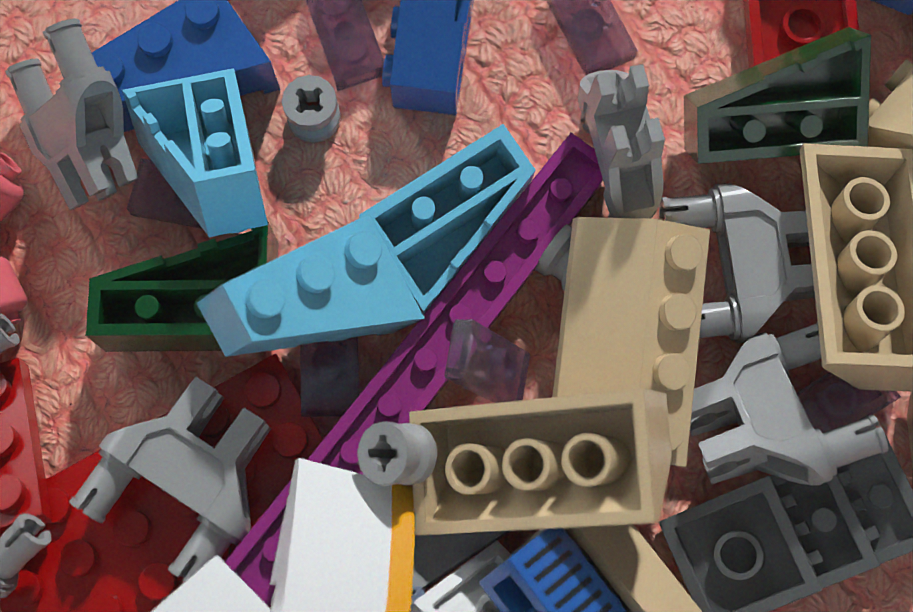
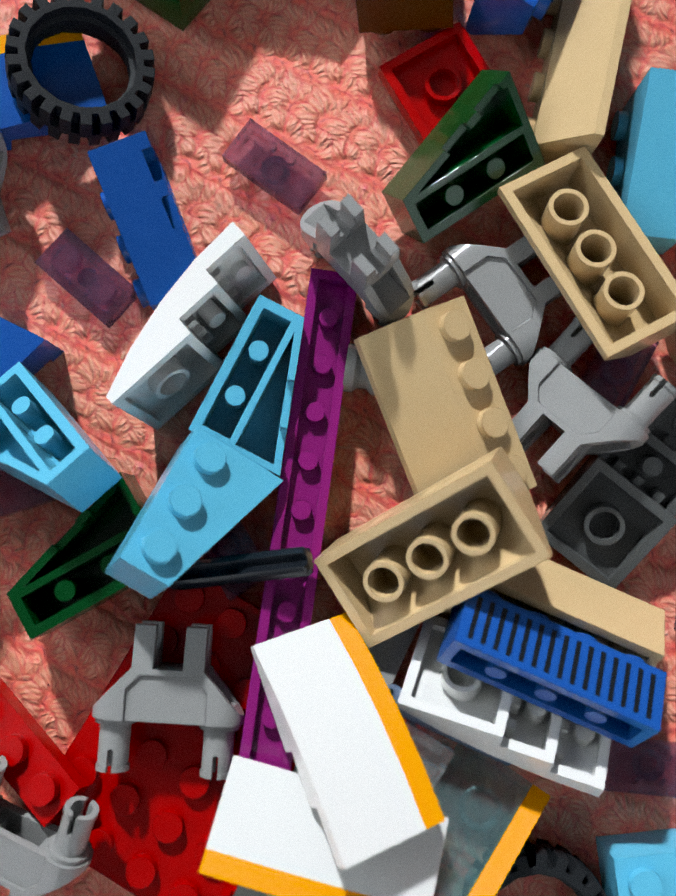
camera: 30 degrees left, 10 degrees up
(311, 122) = (106, 360): light grey wheel -> none
(334, 383) = (246, 568): none -> black axle
(406, 442) = (326, 586): light grey wheel -> none
(415, 125) = (189, 328): none -> white slope
(486, 363) = (348, 488): plate -> none

